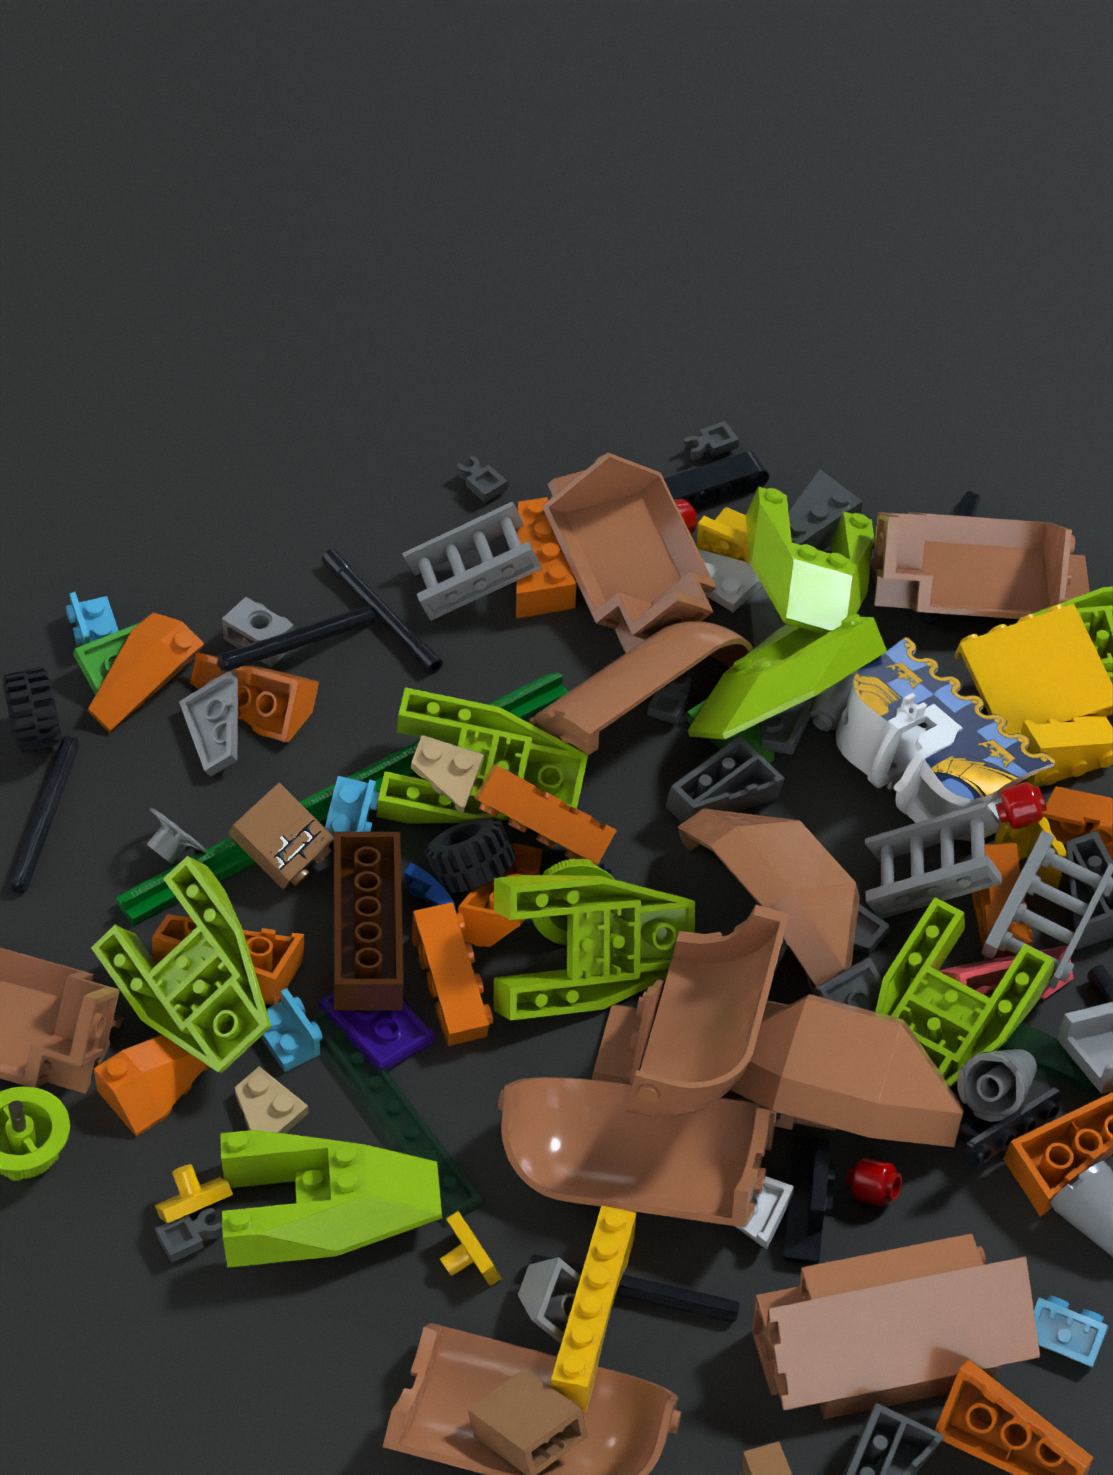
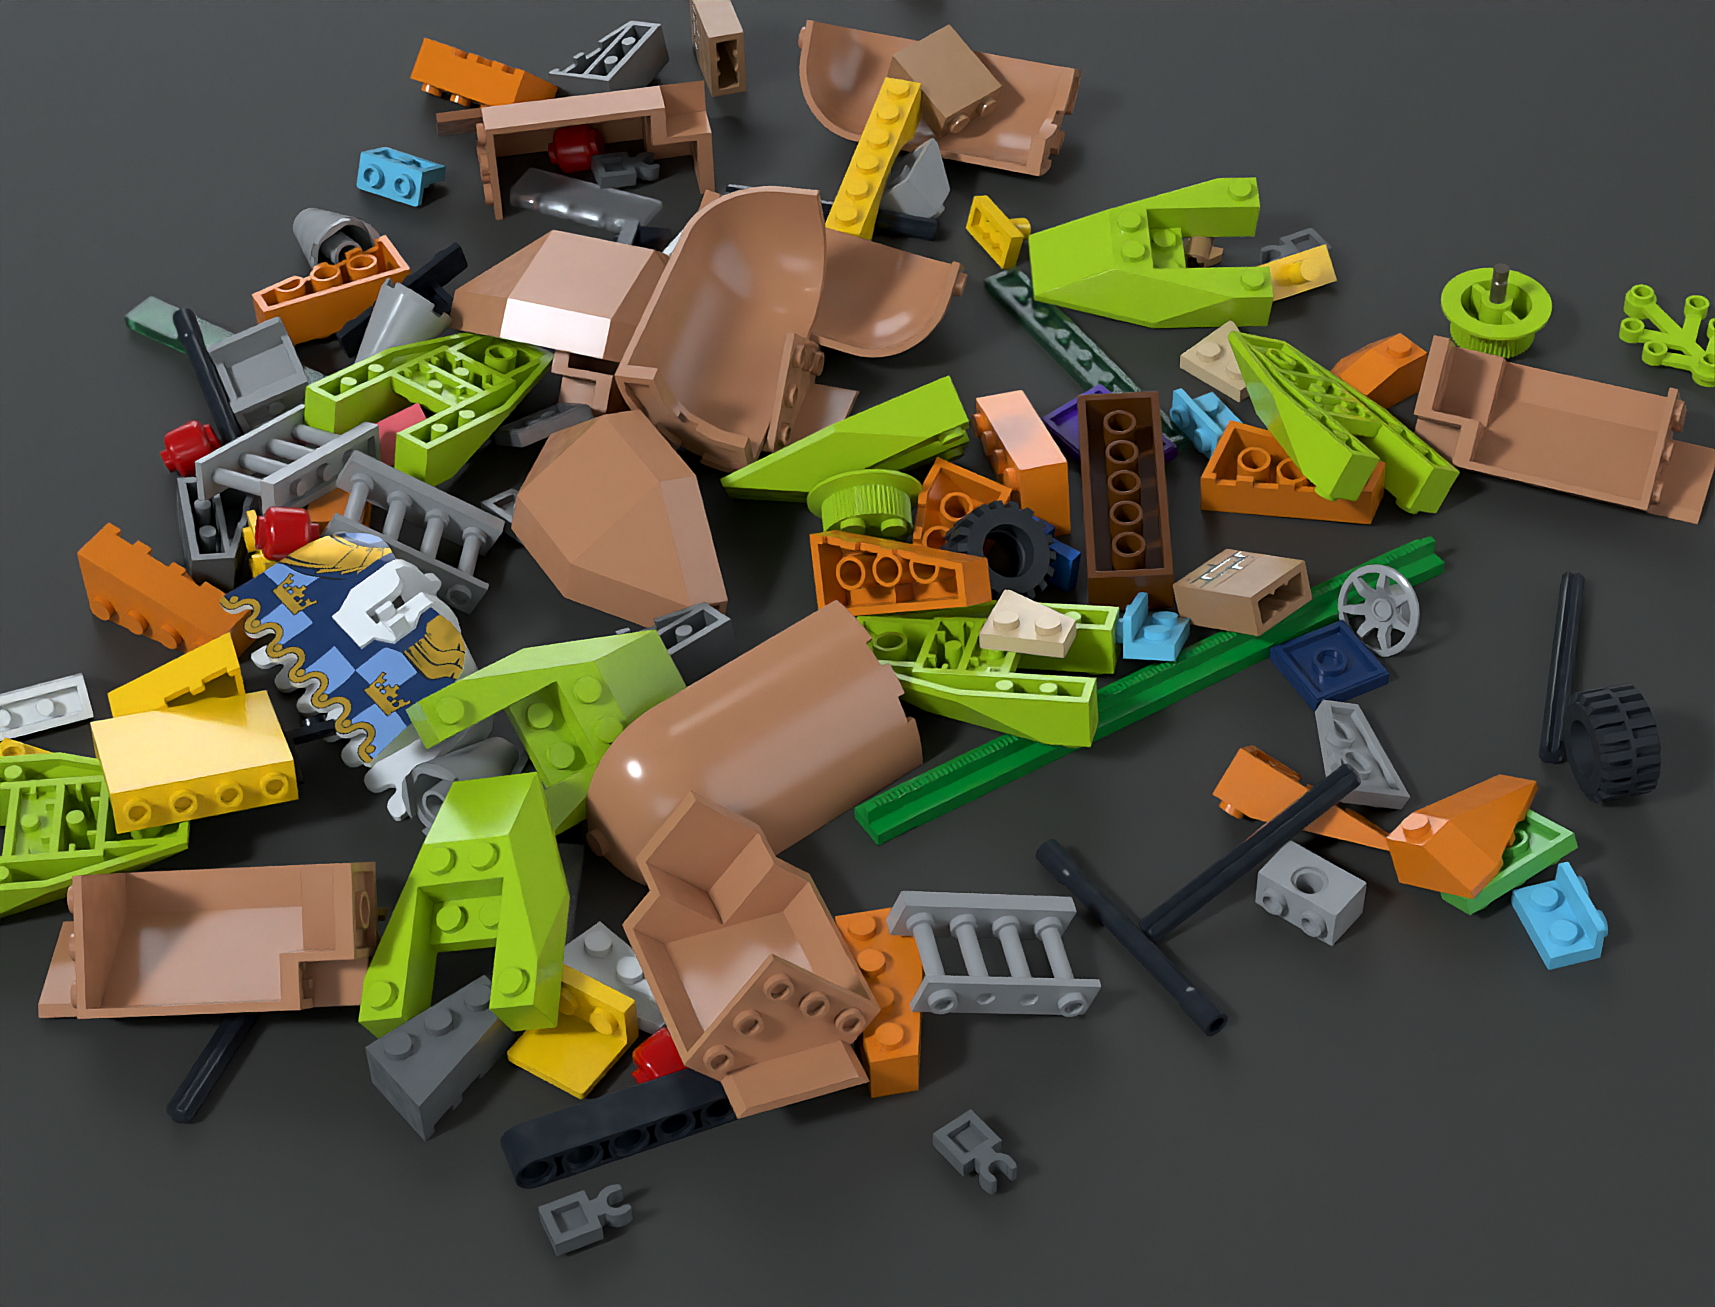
camera: 175 degrees left, 5 degrees down
(214, 811) = (1329, 665): none -> dark blue tile

